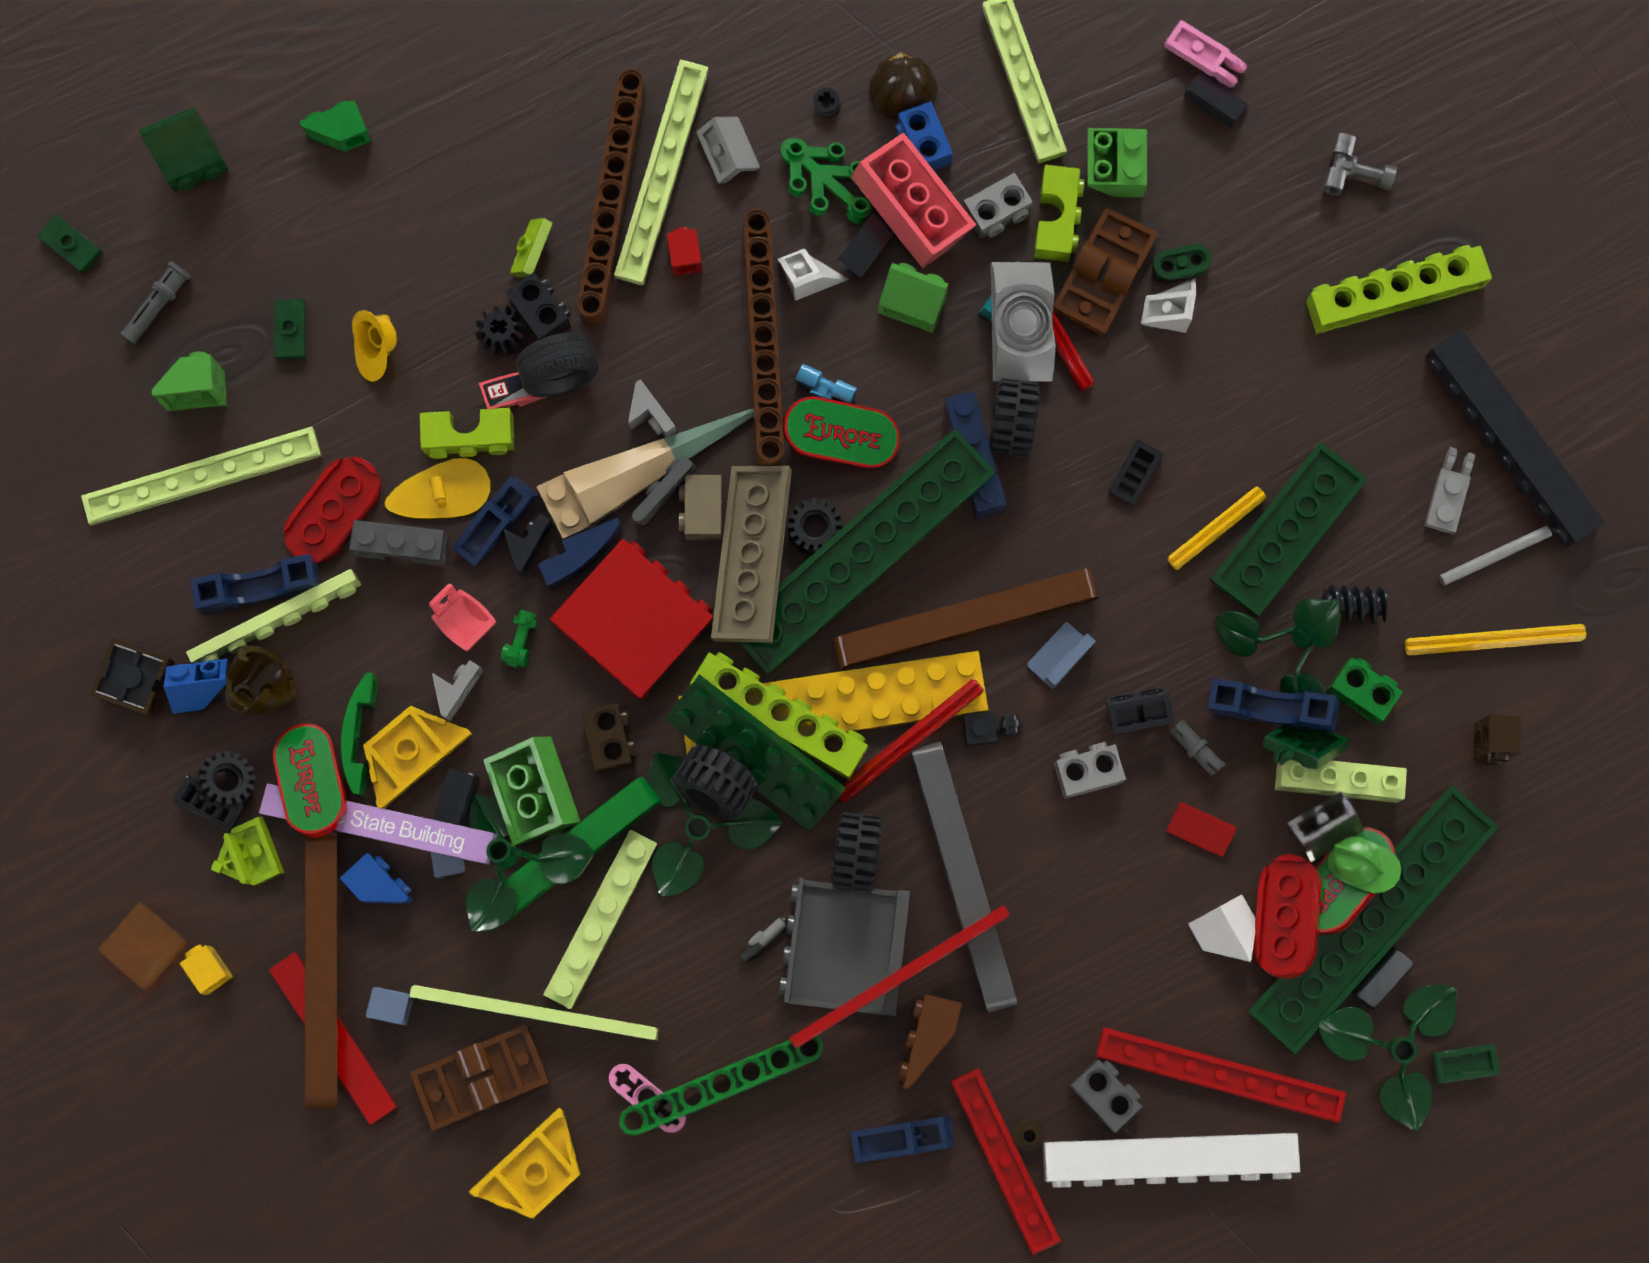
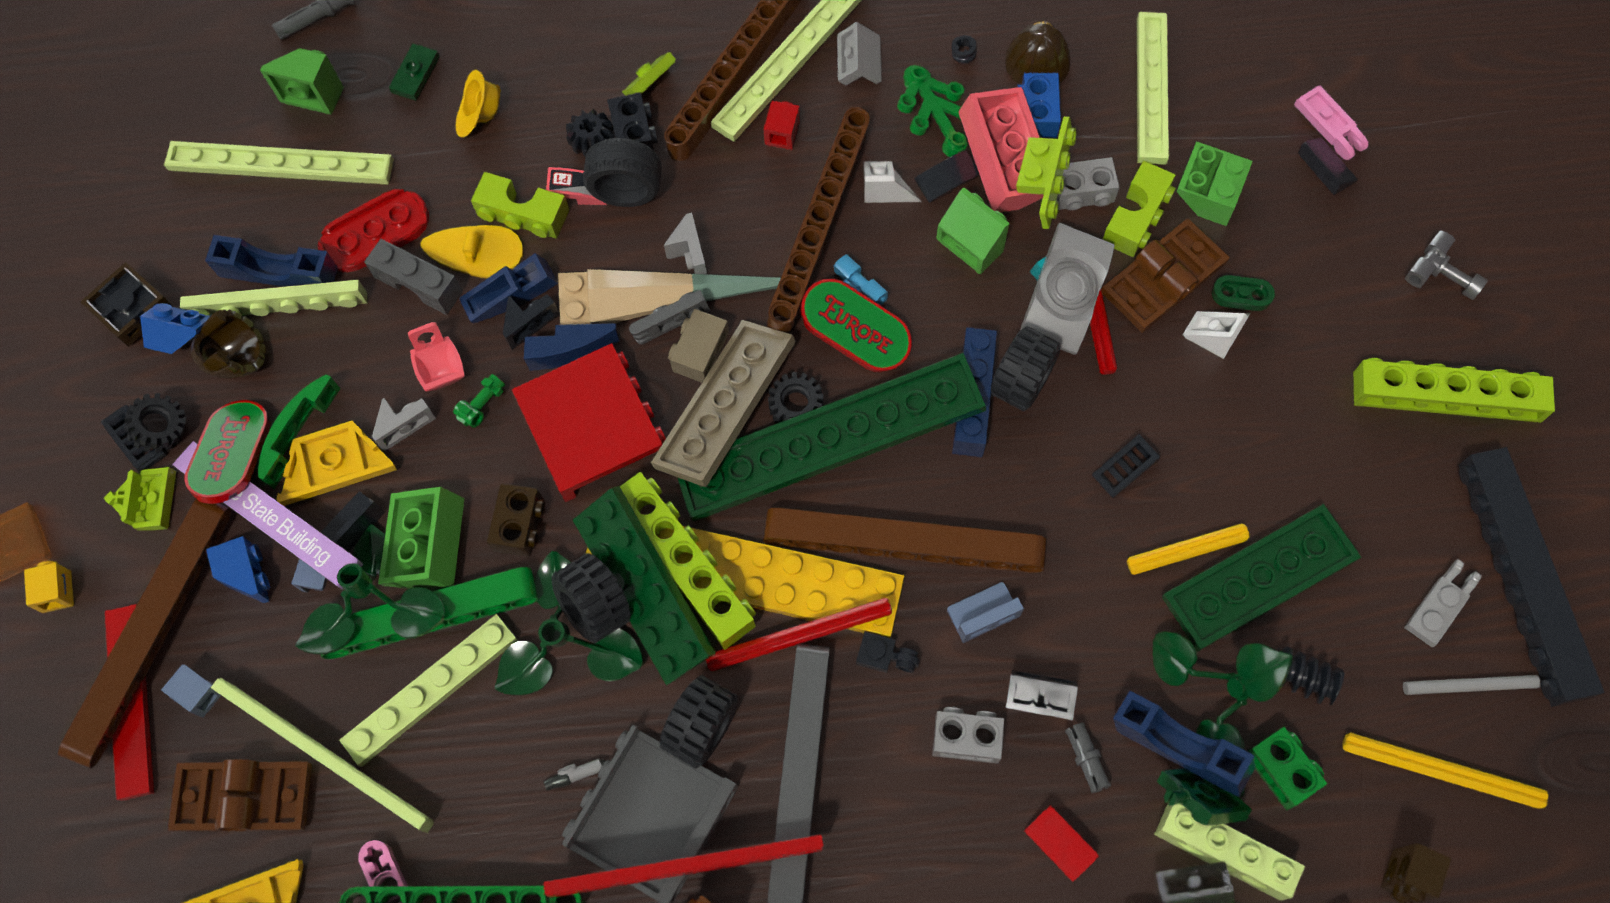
camera: 25 degrees right, 10 degrees down
(957, 212) = (1044, 169): none -> lime bracket

